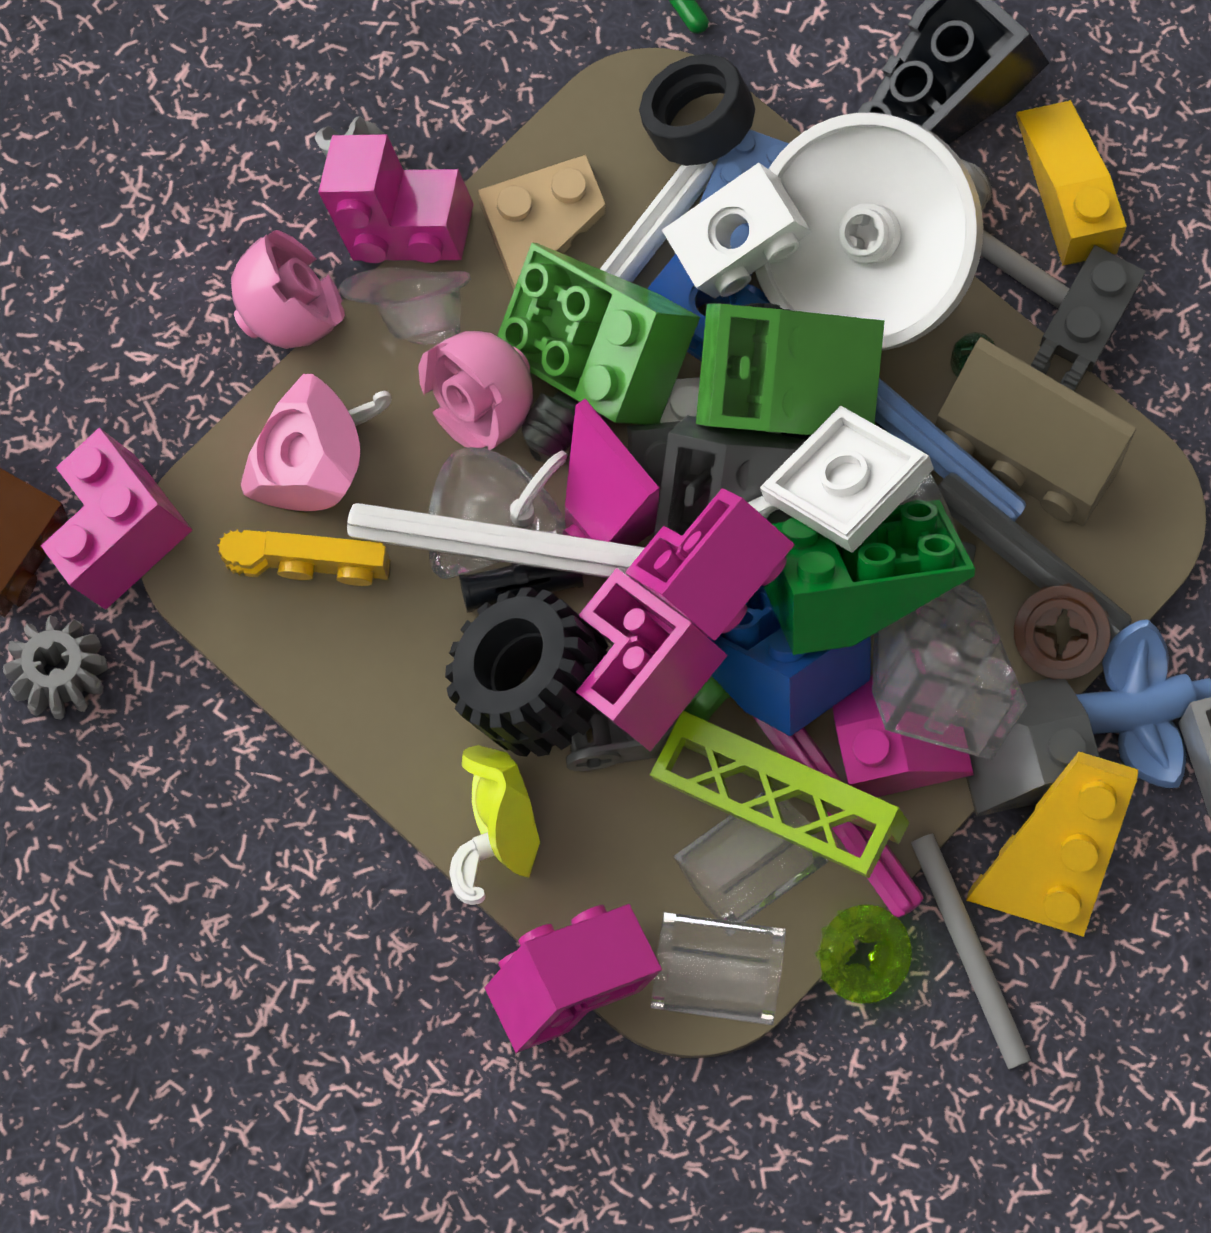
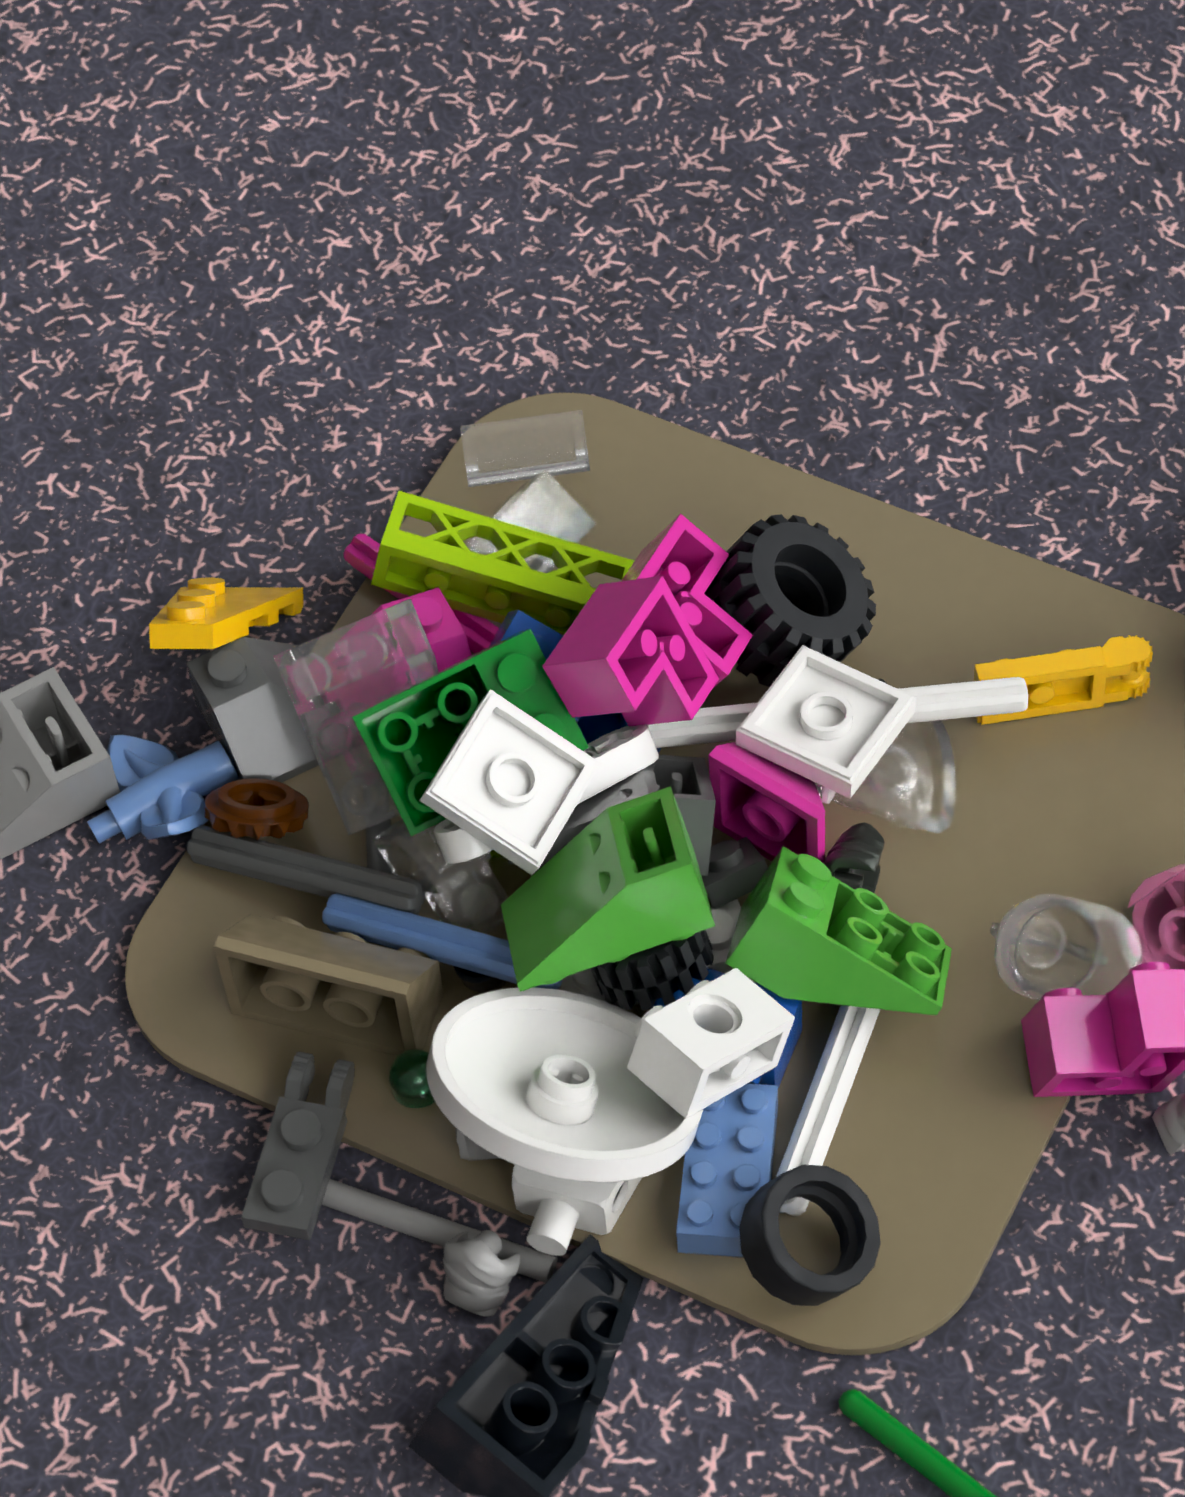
camera: 170 degrees right, 15 degrees down
(308, 448) = (1099, 765): bright pink hat -> none
(480, 387) = (942, 872): bright pink cylinder -> none
(503, 819) = (774, 488): neon yellow hat -> none
(541, 209) = (951, 1099): tan wing -> none
(542, 508) = (825, 721): none -> white tile
(570, 972) = (654, 389): dark pink brick -> none
(888, 960) = (380, 495): clear neon green gear -> none
(970, 951) = (289, 543): light grey bar -> none
(1071, 182) = (353, 1318): yellow slope -> none

